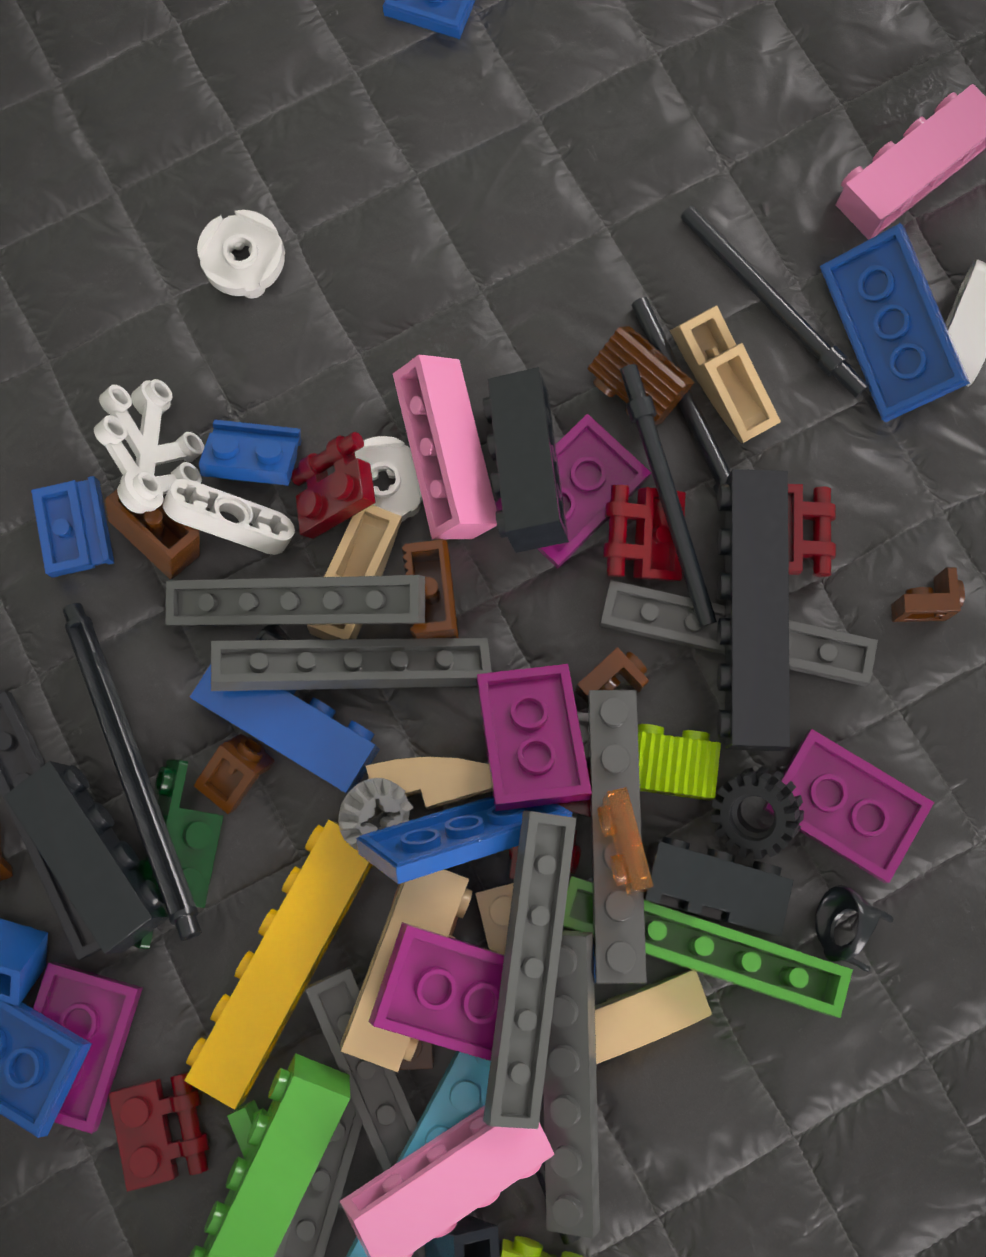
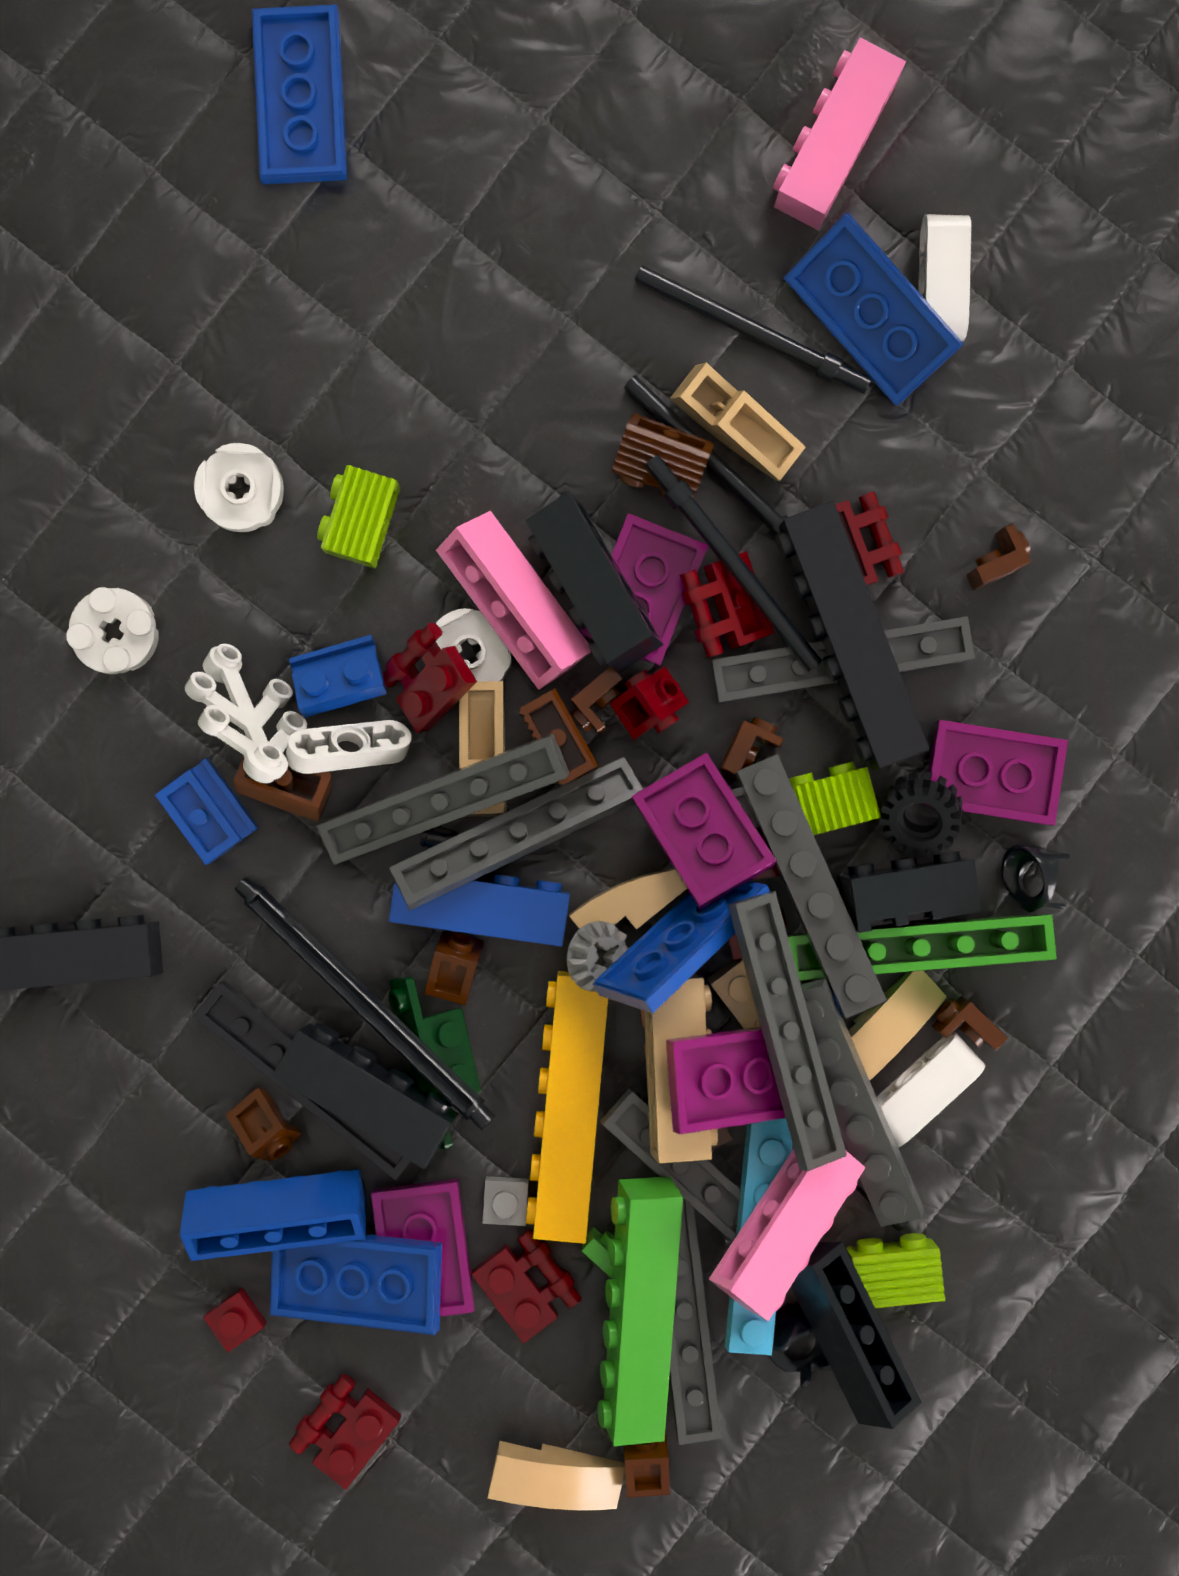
camera: 25 degrees left, 10 degrees up
(65, 309) = (88, 636): none -> white plate
(177, 1031) = (505, 1201): none -> light grey plate
(337, 319) = (359, 516): none -> lime brick
(489, 565) = (599, 692): none -> reddish brown bracket
(532, 594) = (649, 702): none -> dark red brick
(630, 863) = (835, 909): clear orange plate -> none
(656, 1101) = (929, 1086): none -> white beam
(730, 1057) = (976, 1027): none -> reddish brown bracket

